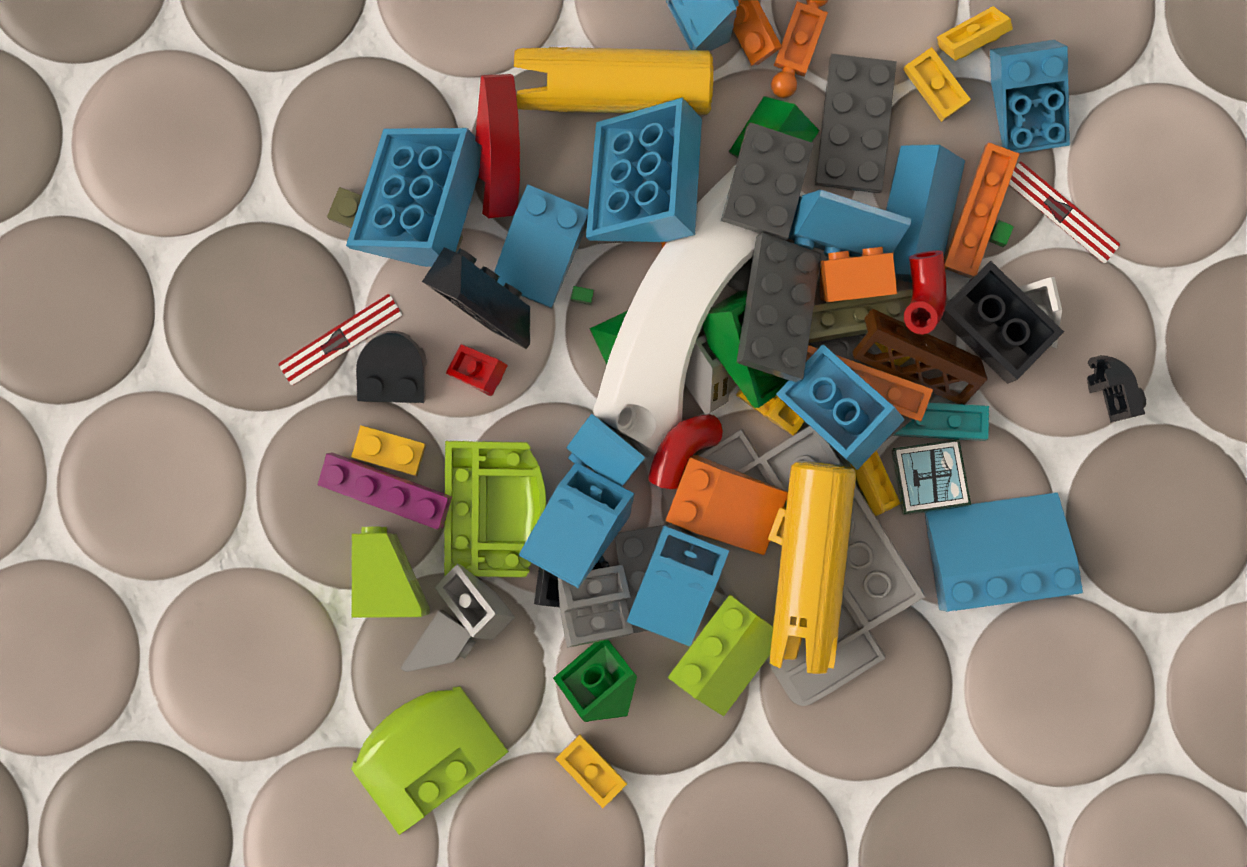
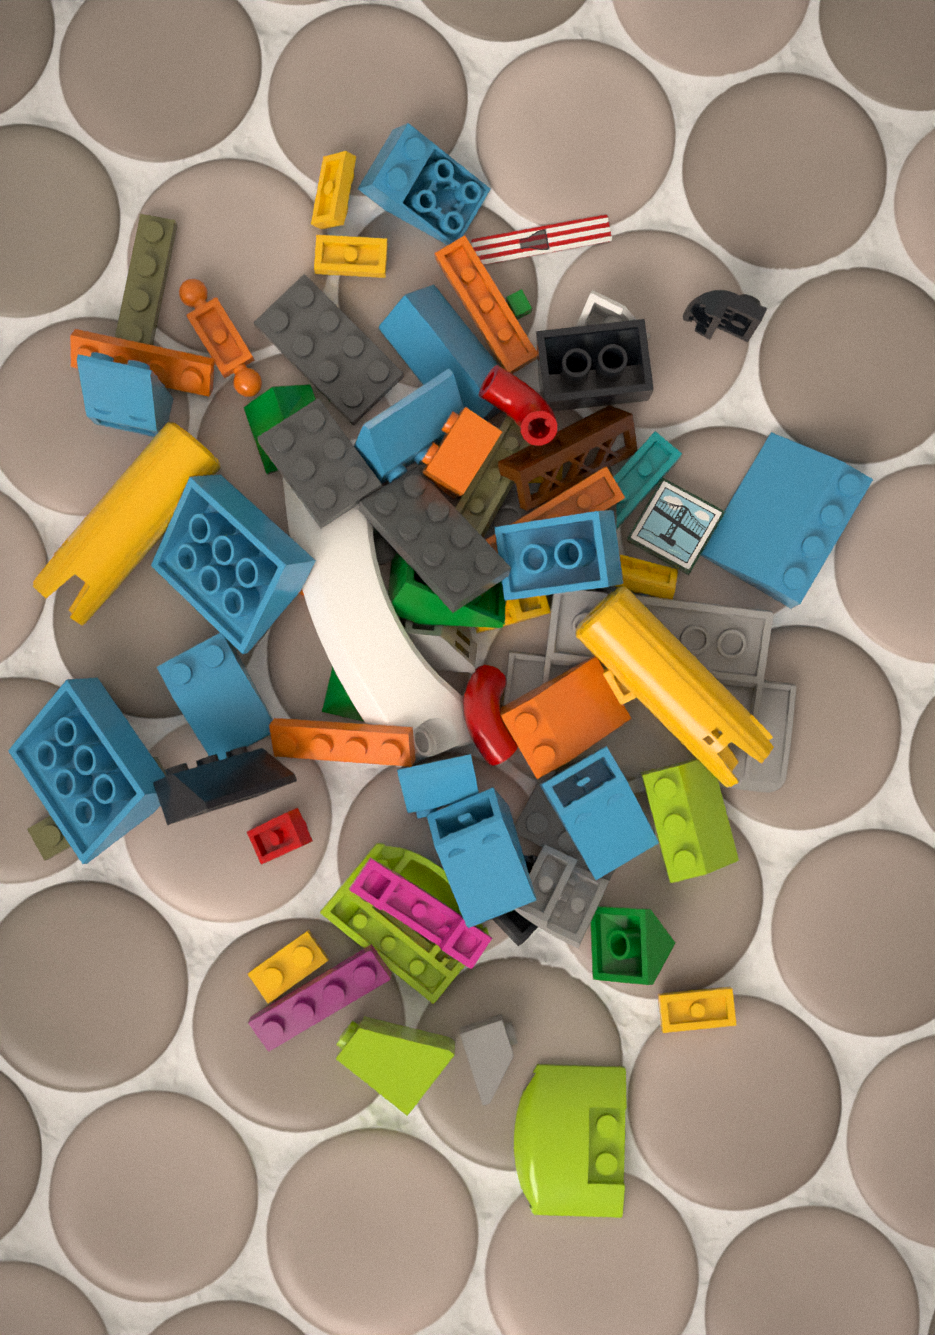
camera: 50 degrees left, 0 degrees up
(340, 339) = (159, 932): sticker -> none
(391, 370) = (221, 909): black slope -> none
(474, 603) = (478, 997): light grey slope -> none
(500, 141) = (99, 660): red slope -> none
(503, 512) = (420, 912): none -> dark pink slope
(580, 360) = (343, 742): none -> orange plate
(582, 295) = (288, 695): green piece -> none

